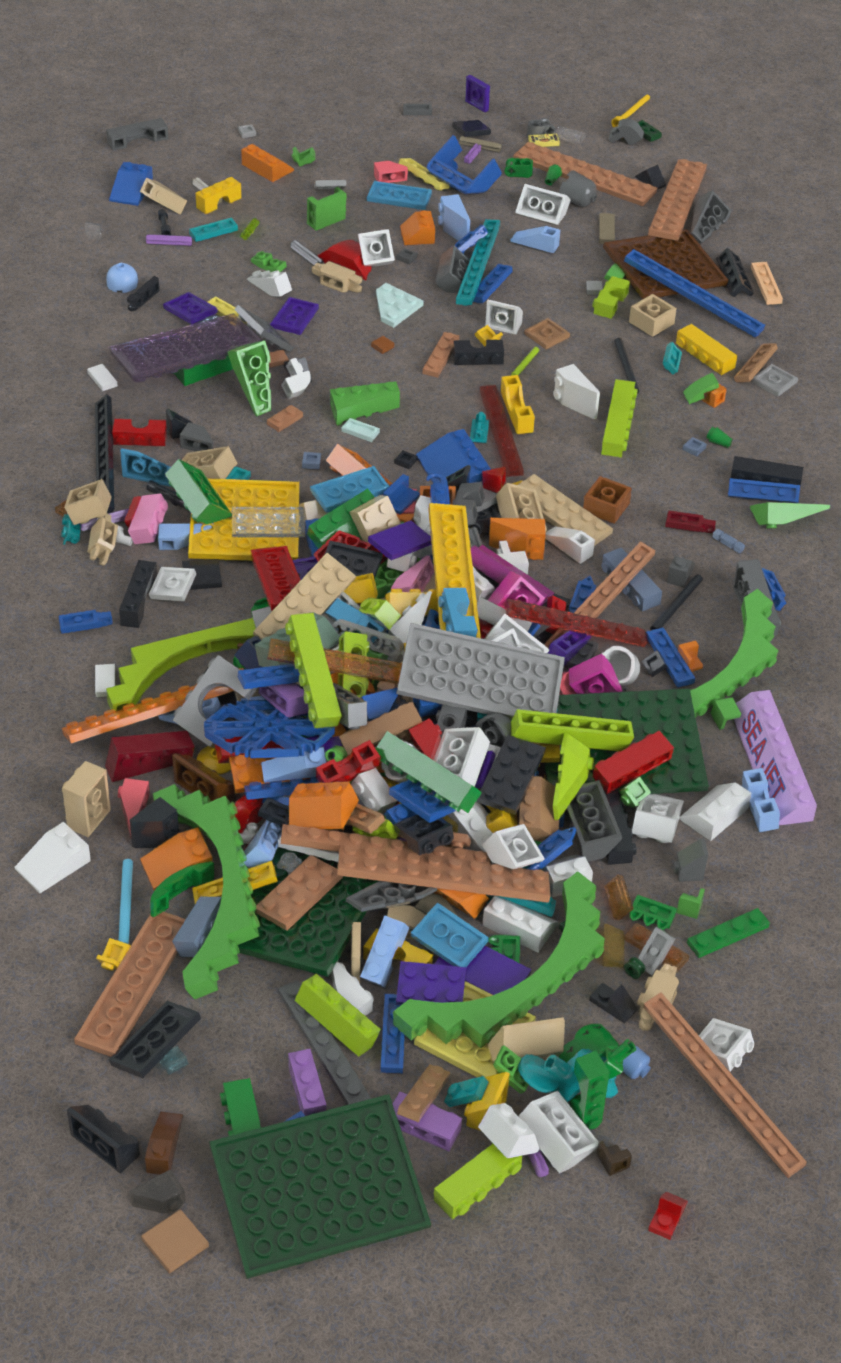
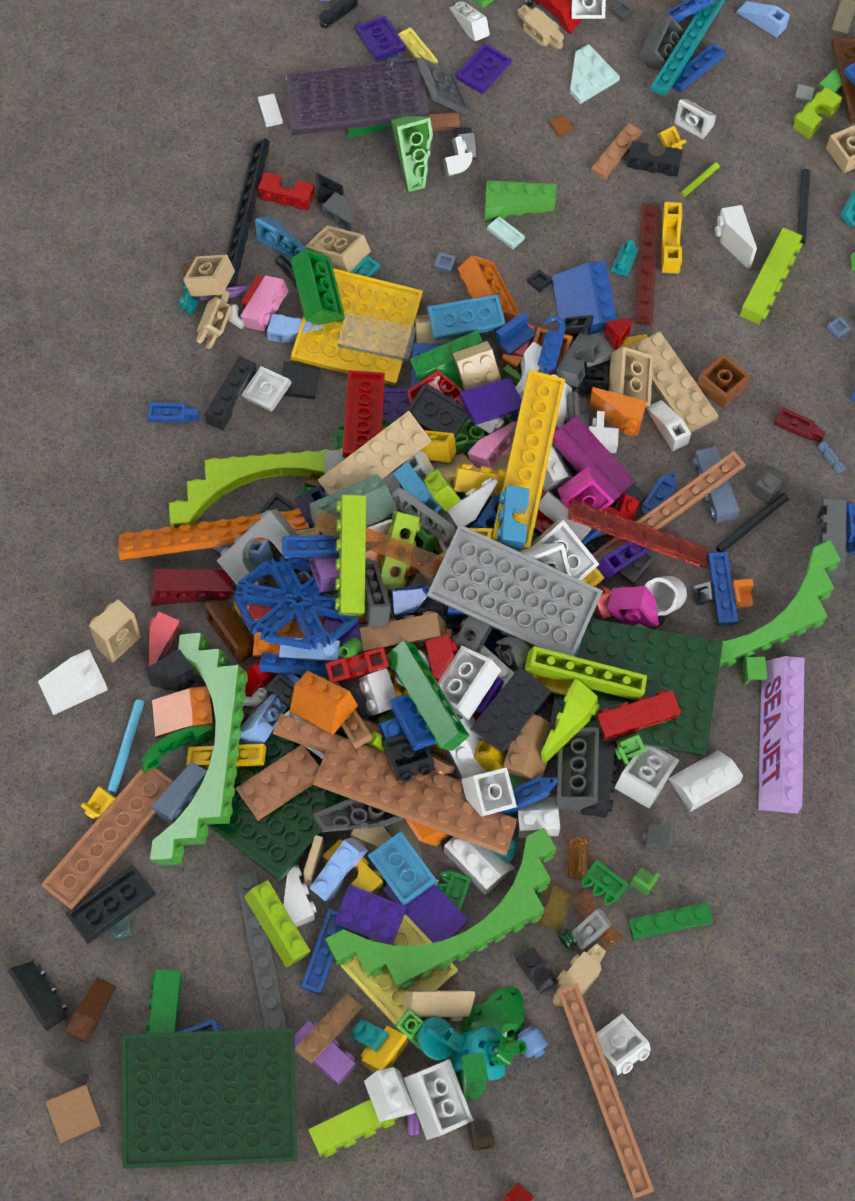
camera: 15 degrees right, 20 degrees up
(104, 678) = (174, 486): white tile -> none
(284, 418) = (435, 201): nougat plate -> none
(289, 862) = (279, 741): clear plate -> none
(306, 1082) = (230, 989): medium lavender brick -> none
(547, 333) = (735, 146): medium nougat tile -> none
(762, 807) = (751, 783): light blue arch -> none

